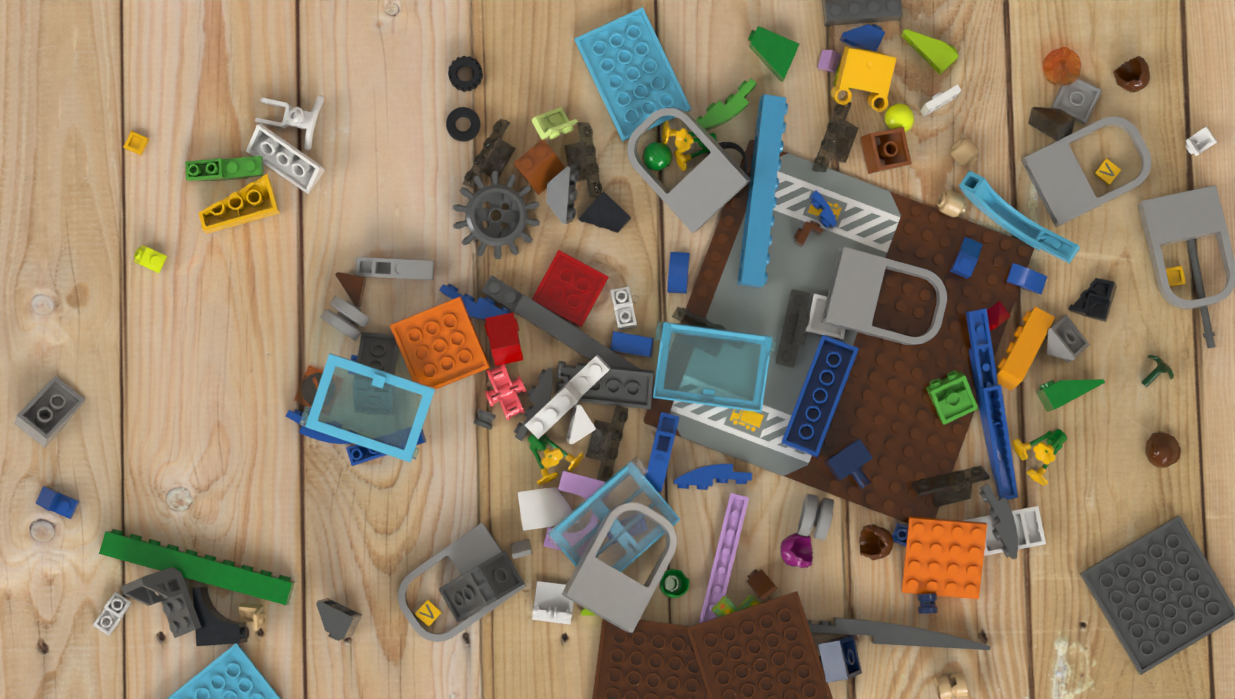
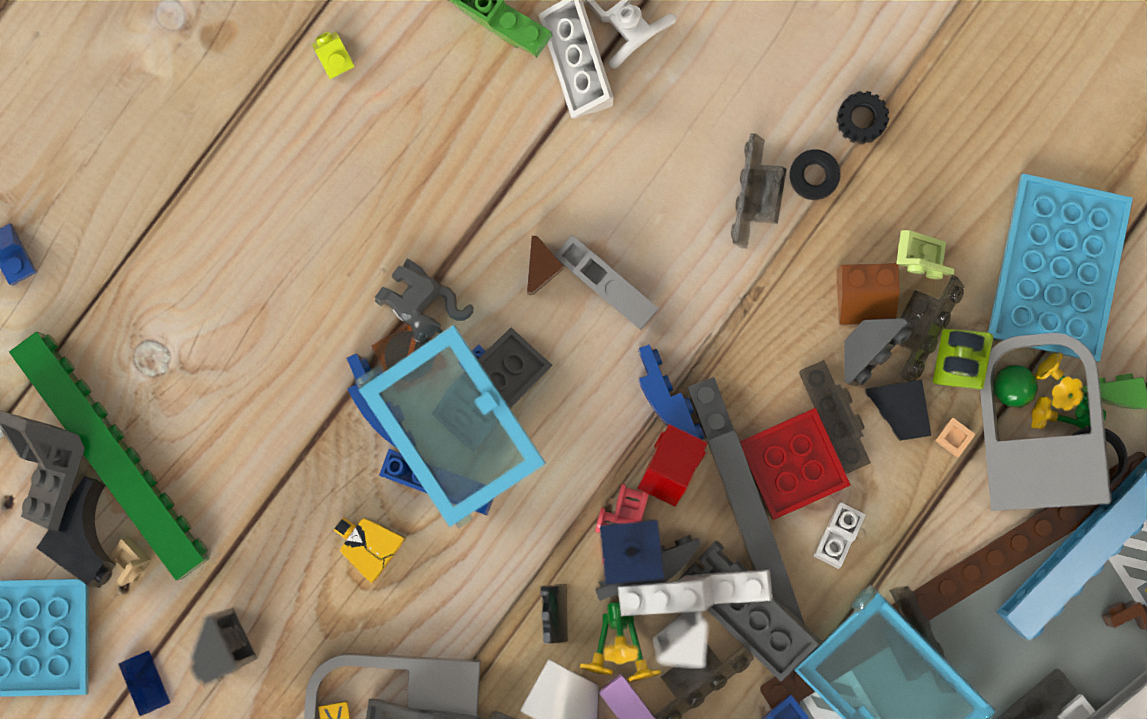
camera: 40 degrees right, 0 degrees up
(49, 411) = (81, 142): light grey slope -> none
(244, 206) = (483, 74): yellow wedge -> none
(298, 355) = (417, 297): none -> dark grey animal
(311, 674) = (144, 683): none -> clear blue slope
(345, 317) = (505, 296): light grey wheel -> none
(375, 507) = (368, 546): none -> yellow torso
(440, 157) = (759, 193): none -> clear smoke bracket
(440, 344) = (591, 414): orange plate -> none
(484, 419) = (576, 541): dark grey wheel -> none
(493, 155) = (820, 239): clear smoke bracket -> none
(502, 466) = (554, 613): none -> black slope
(514, 216) = (792, 329): dark grey gear -> none
(517, 401) = (631, 552): none -> dark blue brick
(572, 245) = (836, 415): none -> clear smoke bracket
(616, 163) = (962, 358): none -> lime plate
(632, 344) = (817, 586): blue slope -> none
(645, 208) = (954, 437): none -> light nougat plate
(678, 272) = (937, 544): blue slope -> none

